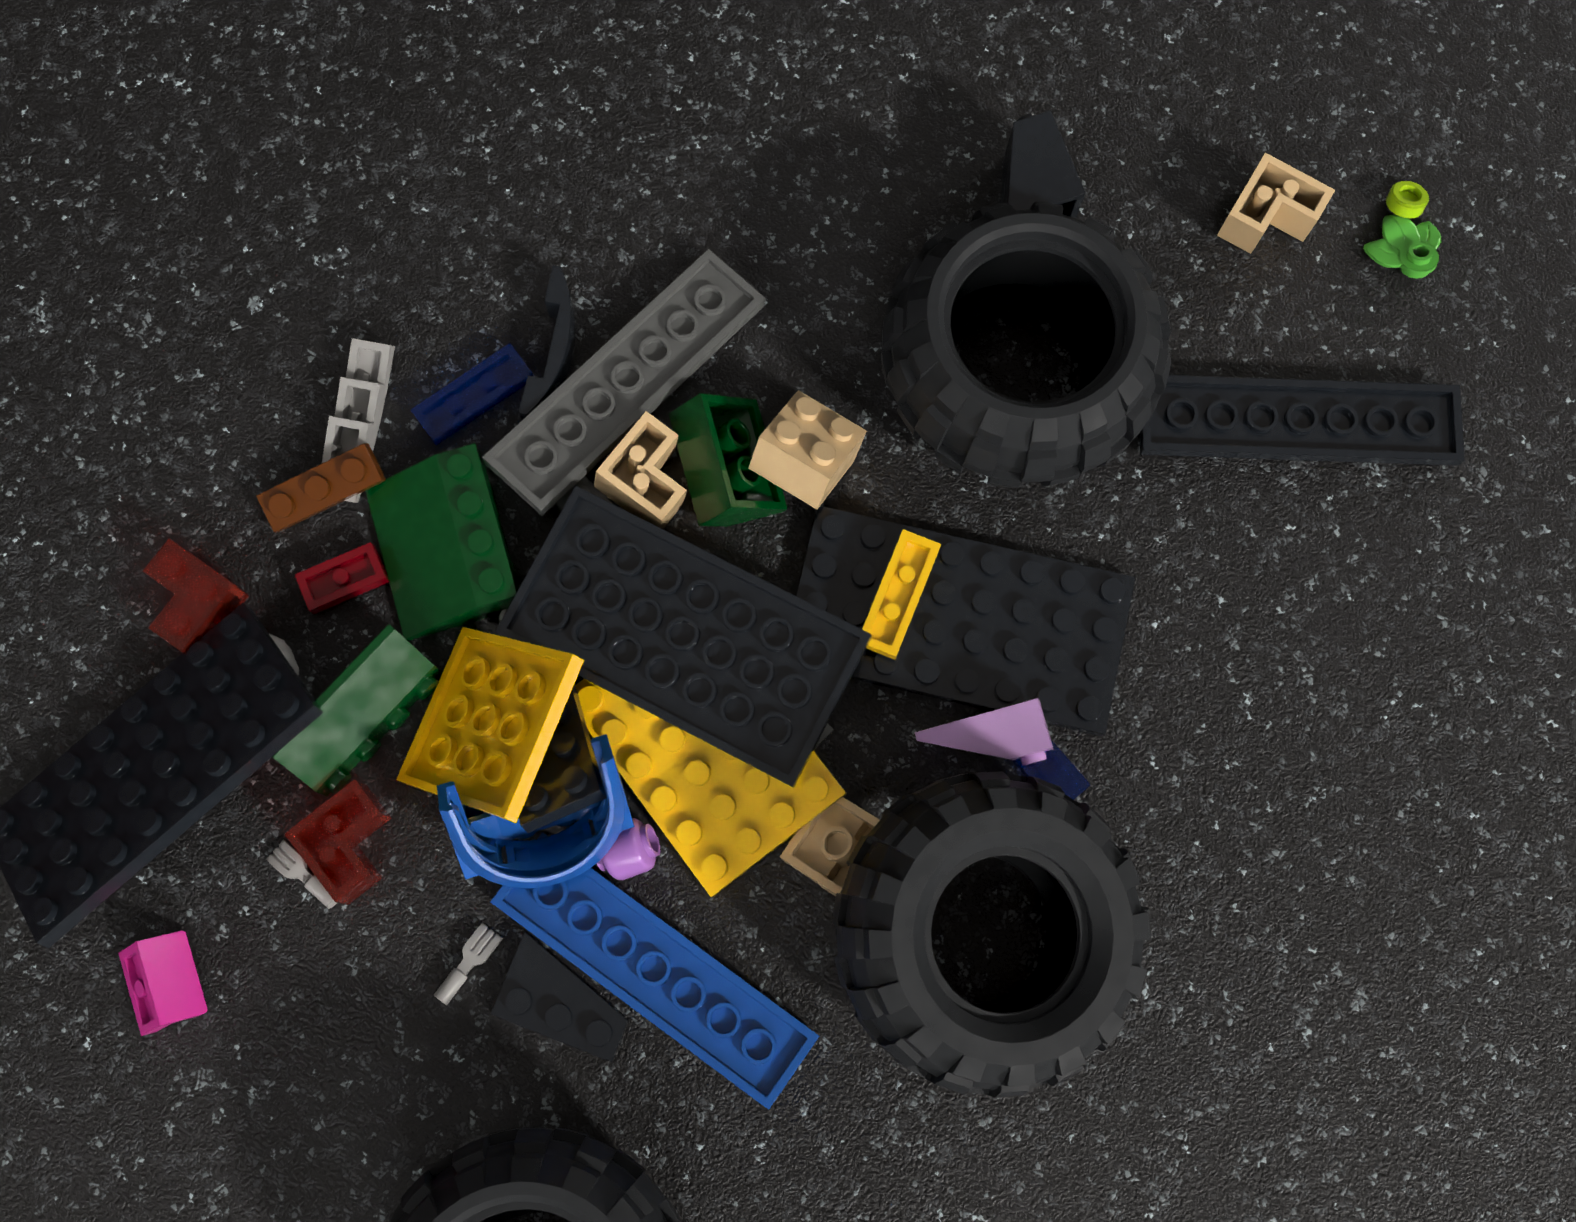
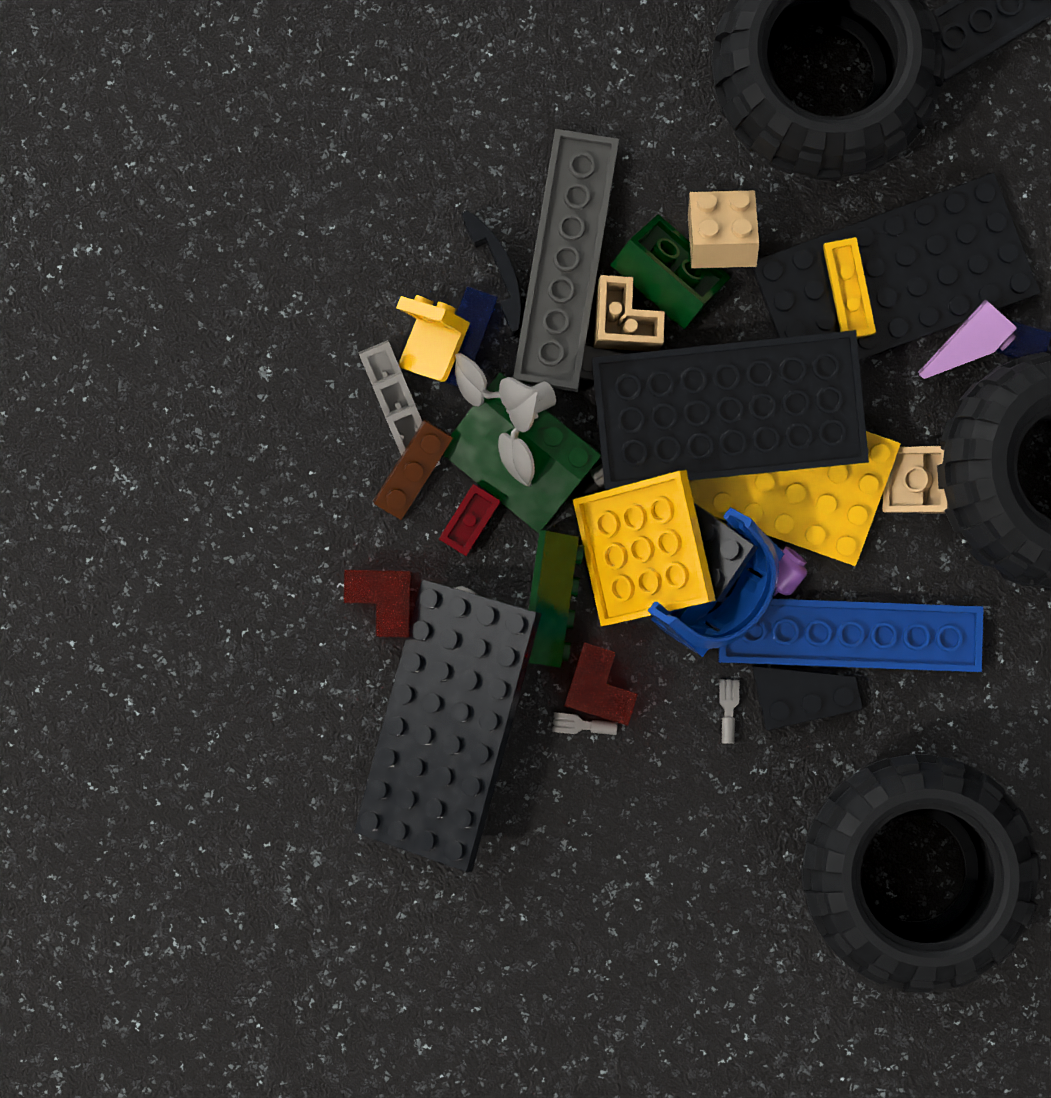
camera: 25 degrees left, 10 degrees up
(162, 981) = (545, 849): dark pink panel -> none
(440, 371) = (433, 339): none -> yellow bracket
(477, 485) = (521, 404): none -> light grey plant

